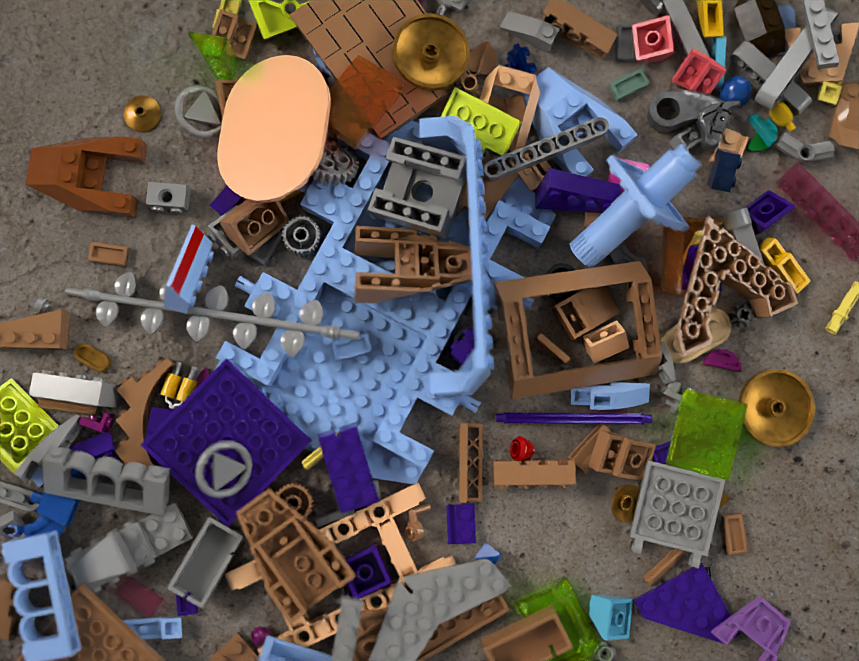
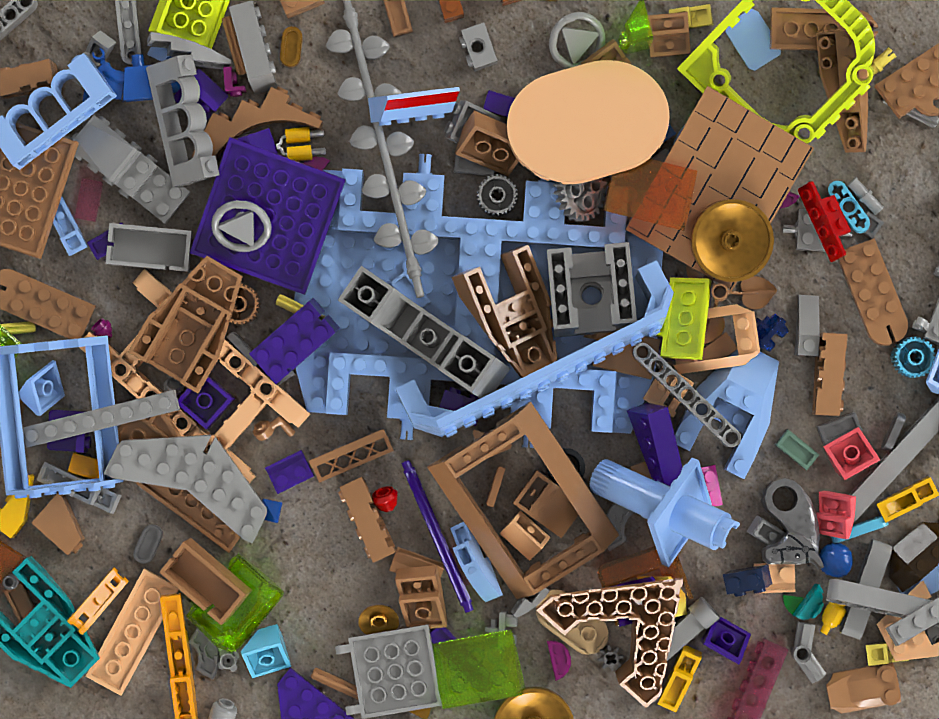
camera: 75 degrees right, 5 degrees up
(425, 328) = (423, 333): none -> light grey arch

